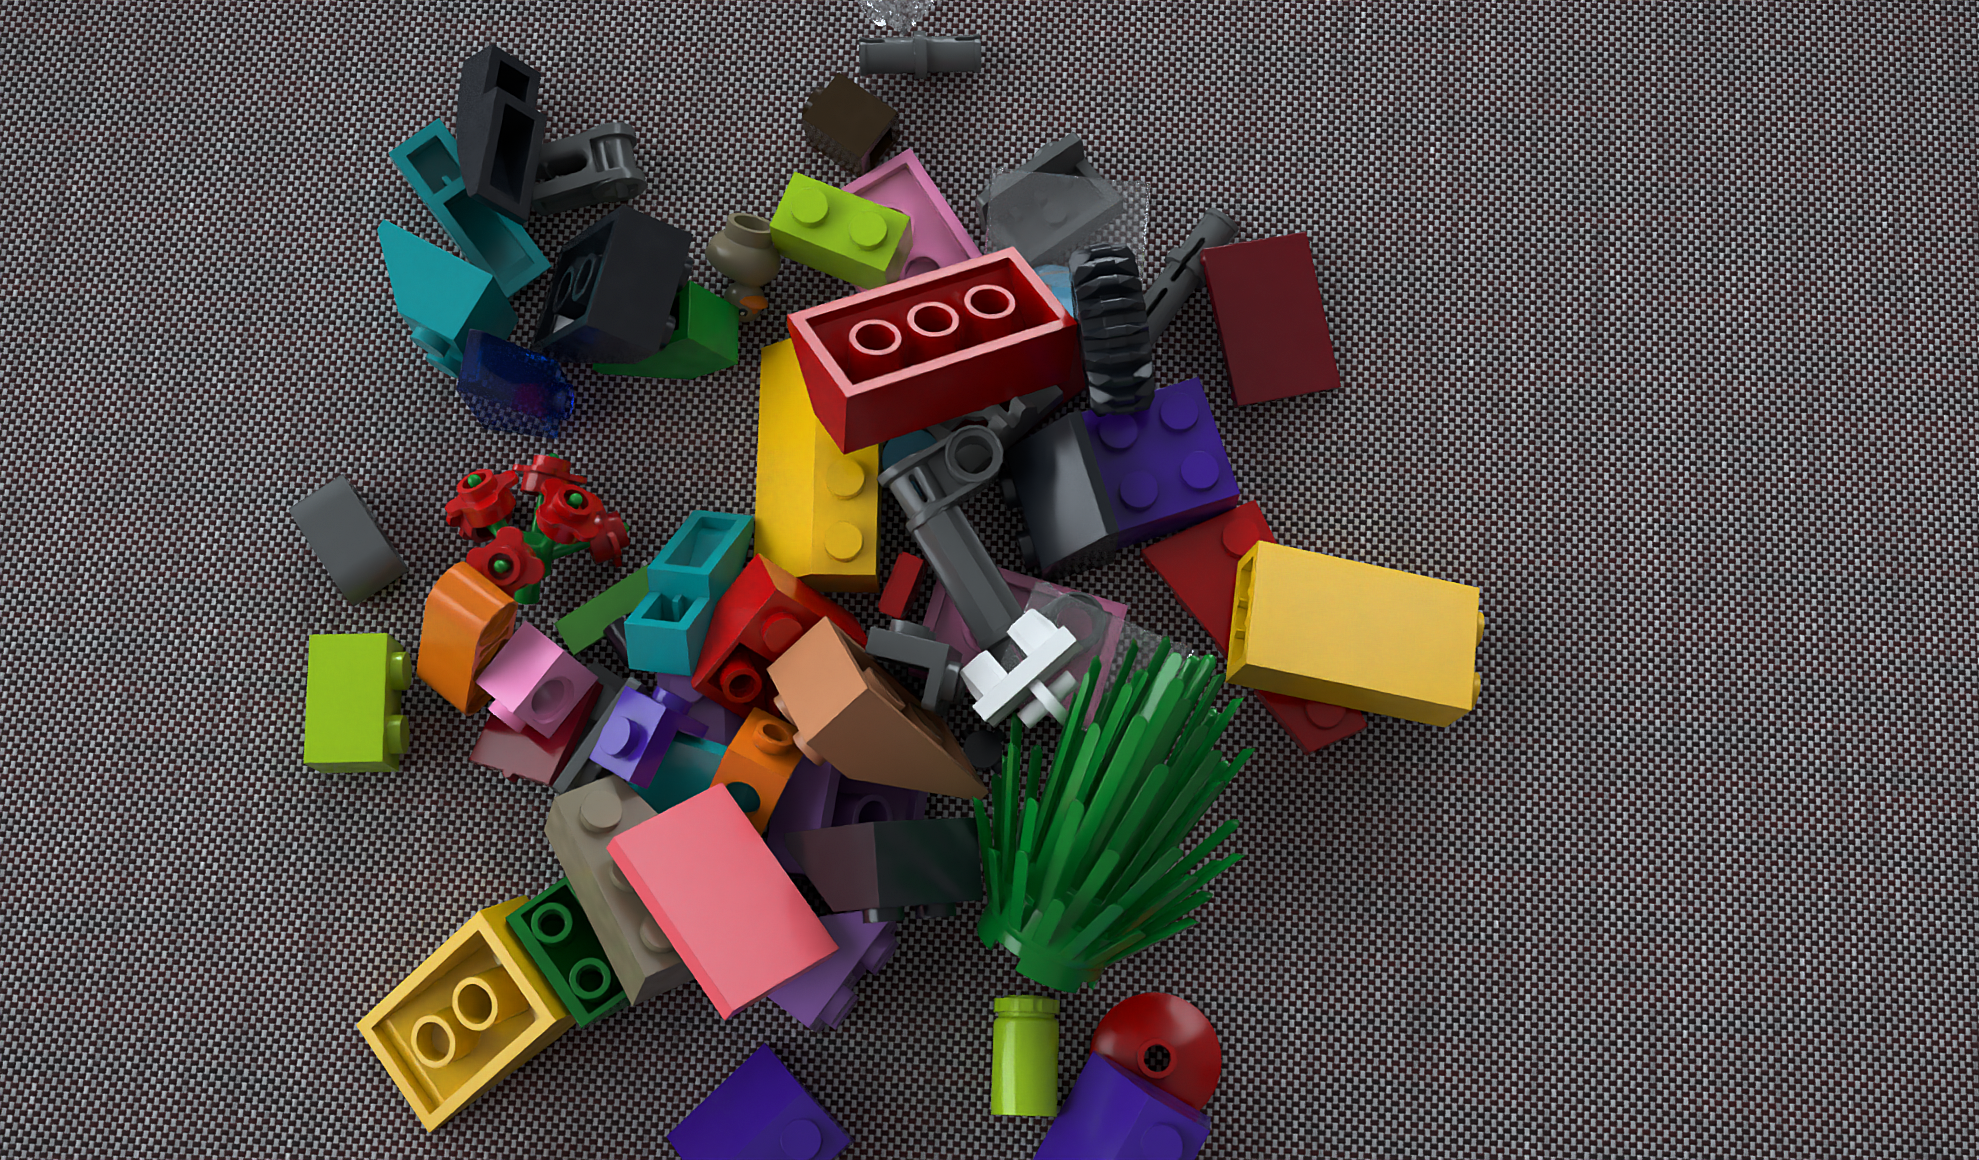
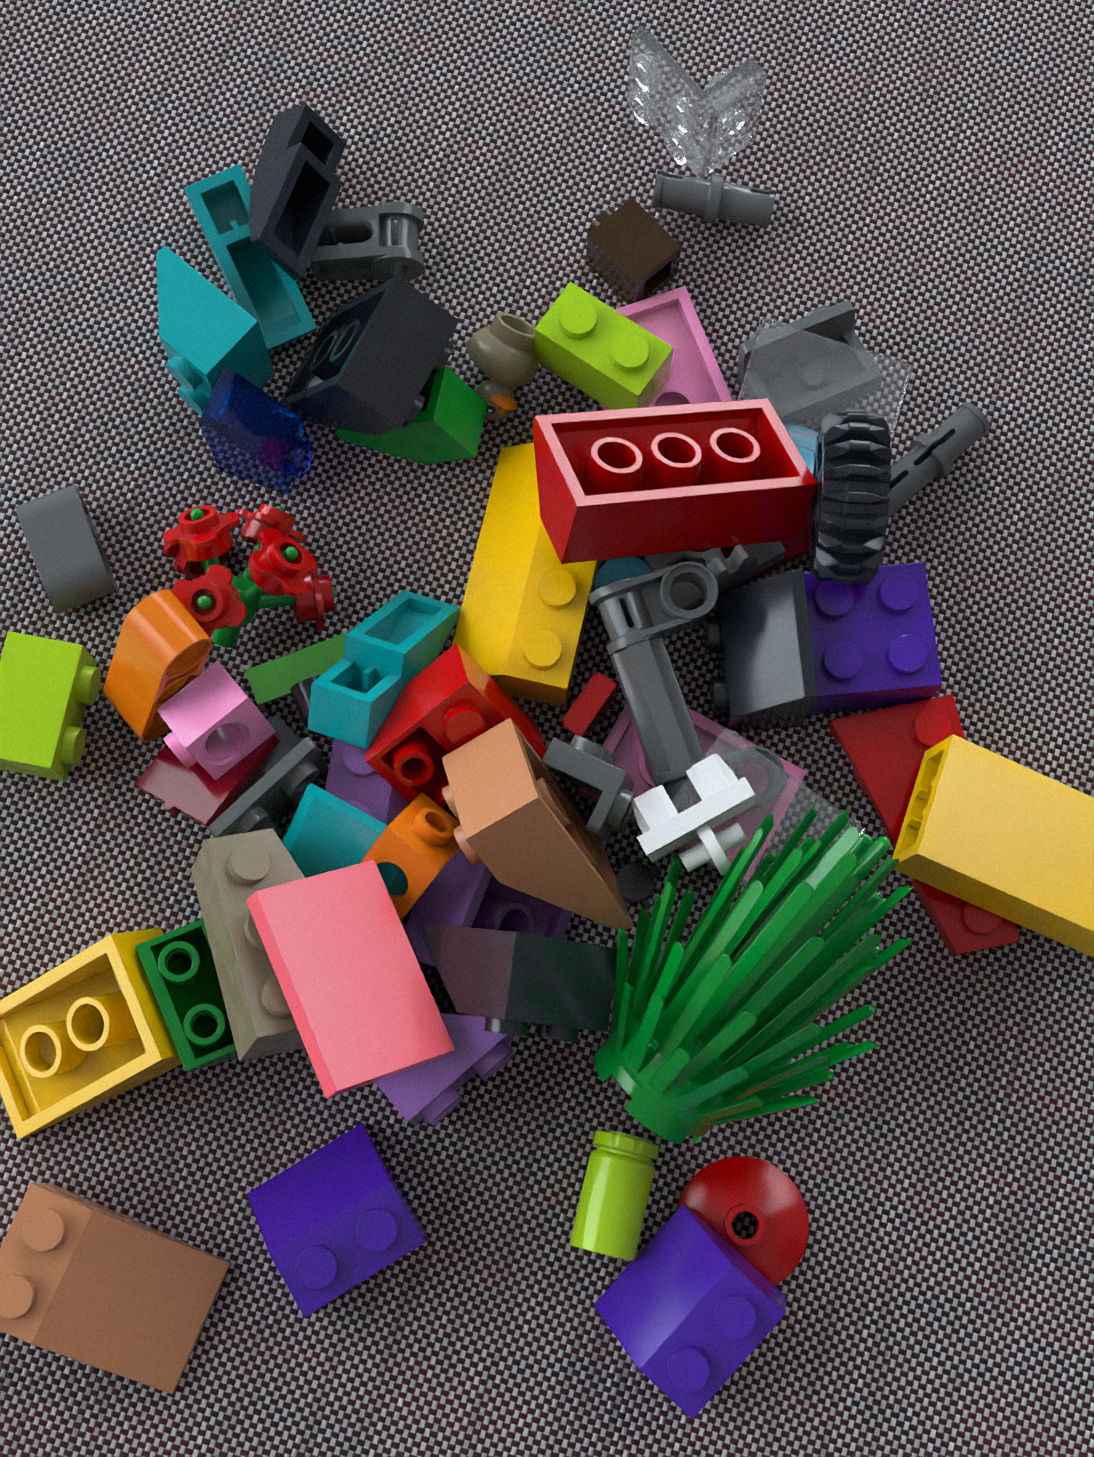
camera: 10 degrees right, 0 degrees up
(641, 733) = (306, 793): dark purple bracket -> none
(1270, 319) = (1003, 522): dark red piece -> none

